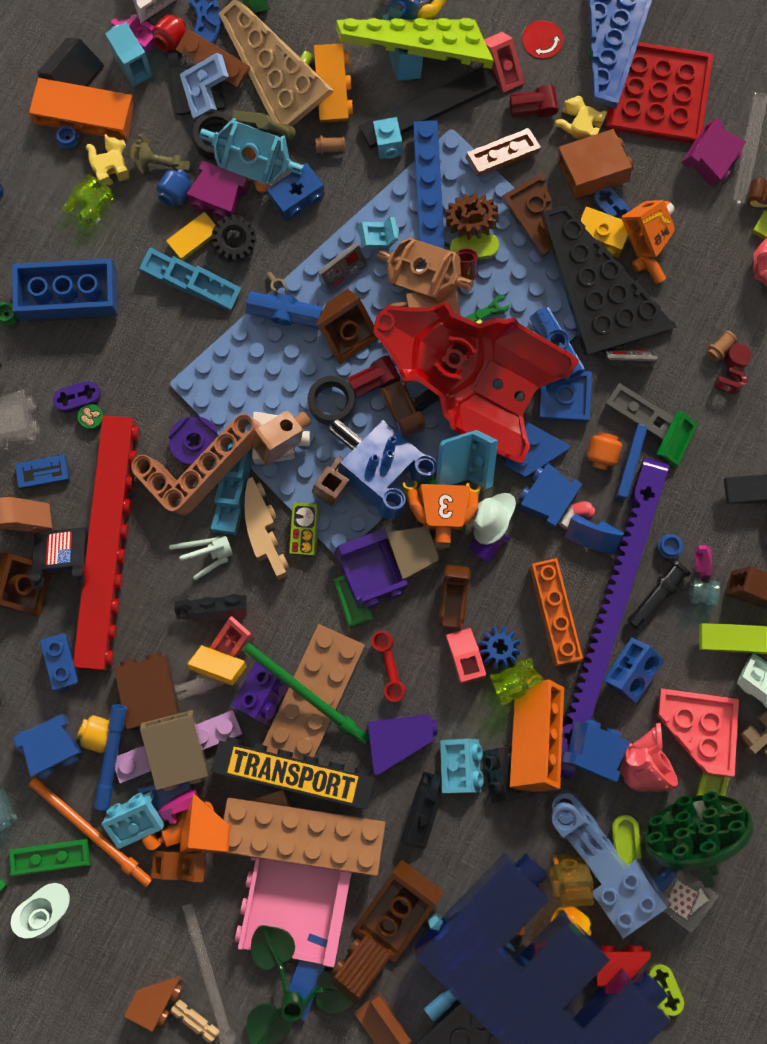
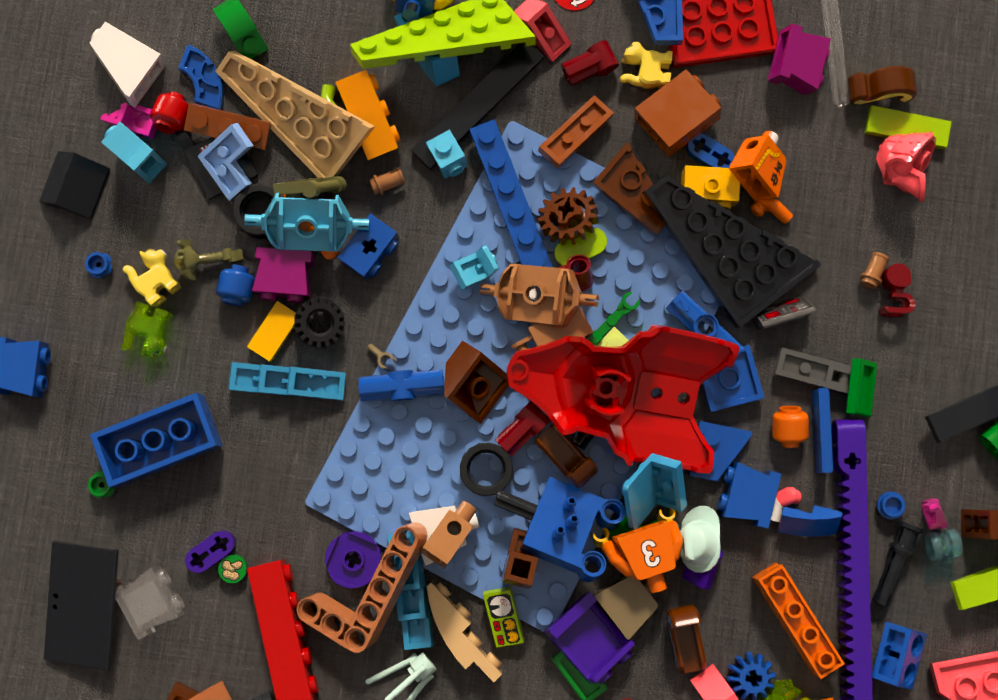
camera: 20 degrees left, 5 degrees up
(42, 472) = (202, 646): blue tile -> none
(83, 108) = (103, 228): orange brick -> none
(342, 268) = (448, 318): slope -> none

